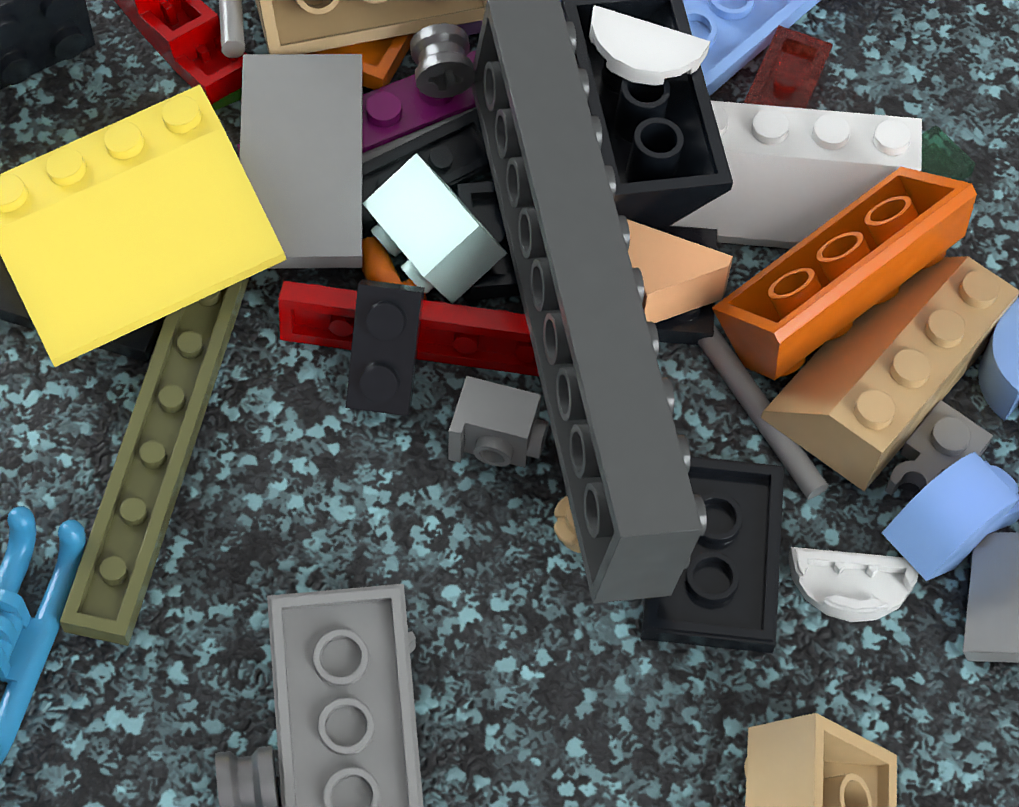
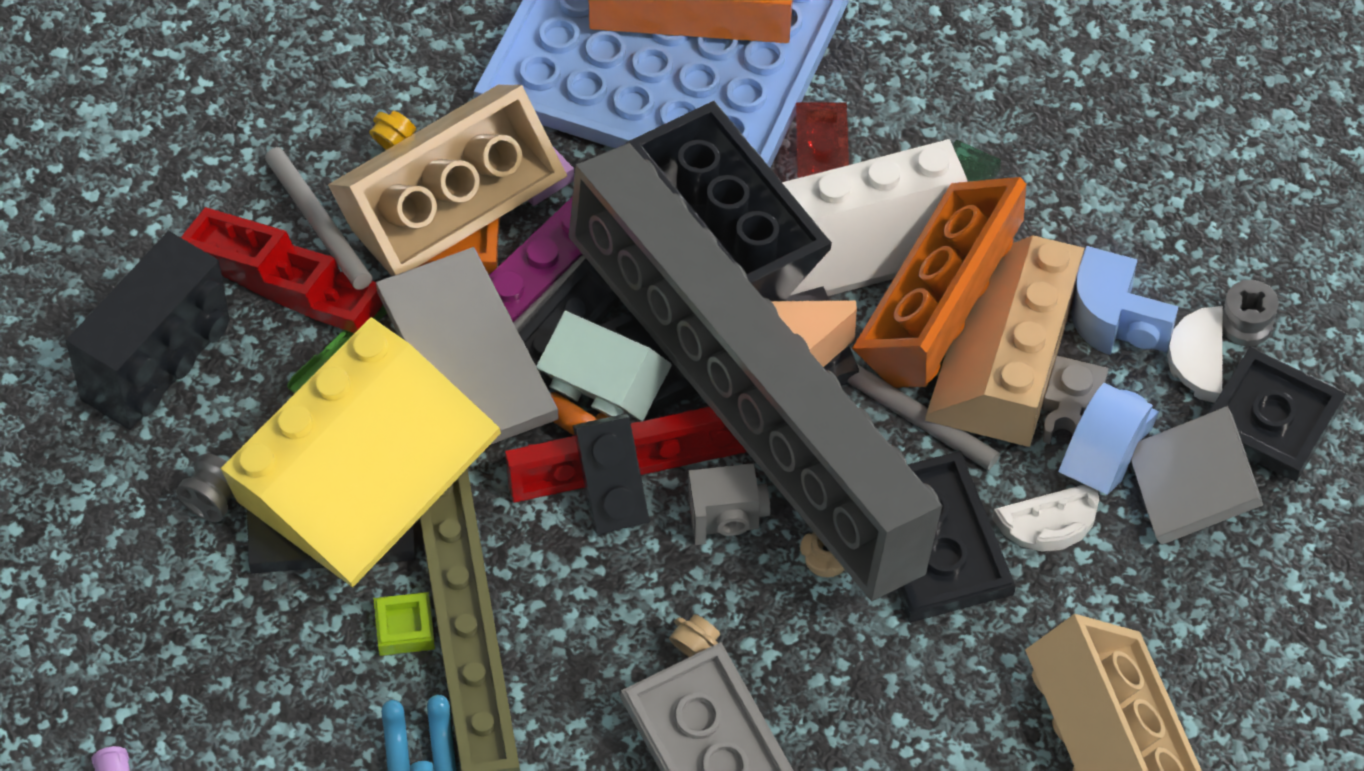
camera: 20 degrees left, 5 degrees down
(94, 426) = (404, 623): none -> lime tile
(390, 563) = (693, 635): none -> tan plate
(442, 60) = (543, 228): flat silver wheel -> none
(644, 49) = (712, 162): white tile -> none

